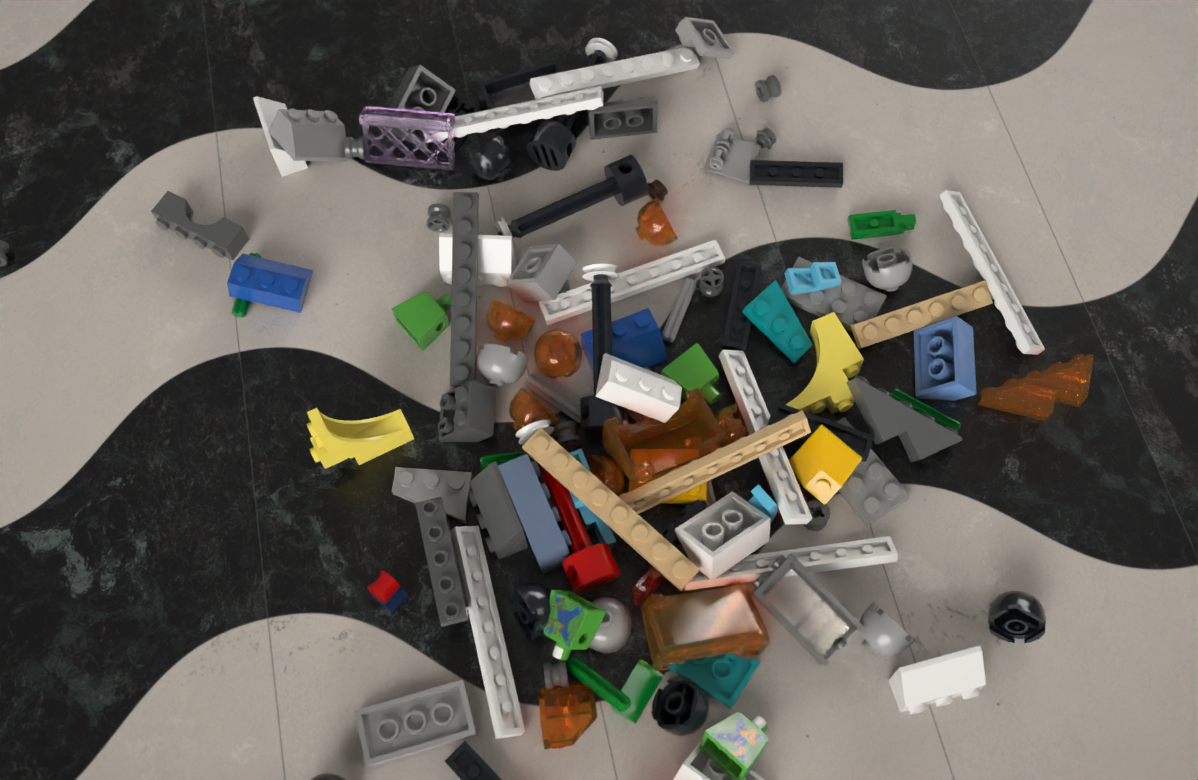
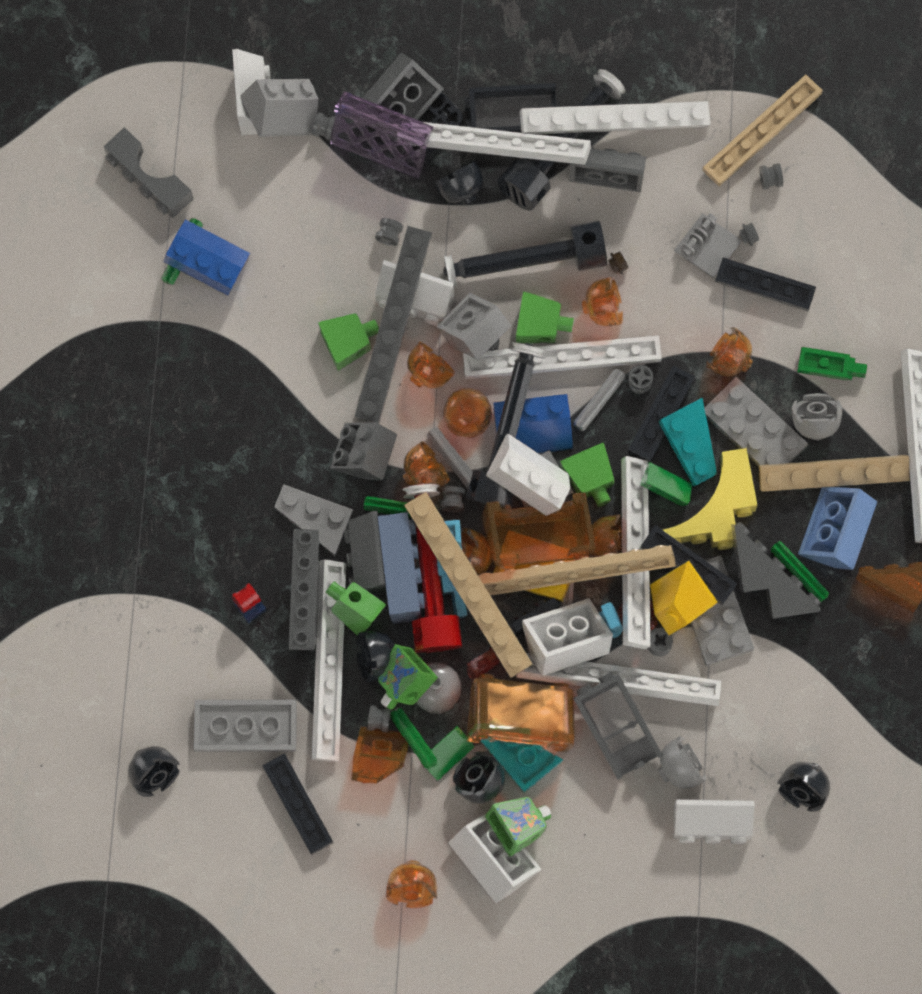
camera: 15 degrees right, 10 degrees up
(362, 439) = (258, 450): light yellow arch -> none
(499, 563) = (355, 606): none -> bright green torso
(500, 365) = (408, 412): light grey cylinder -> none
(602, 249) = (540, 320): none -> bright green torso
(705, 37) = (723, 100): light grey plate -> none
(746, 57) = (762, 130): none -> tan plate
(769, 367) = (666, 484): none -> green slope
(788, 236) = (731, 354): none -> clear orange cylinder
(816, 278) = (739, 406): medium azure slope -> none

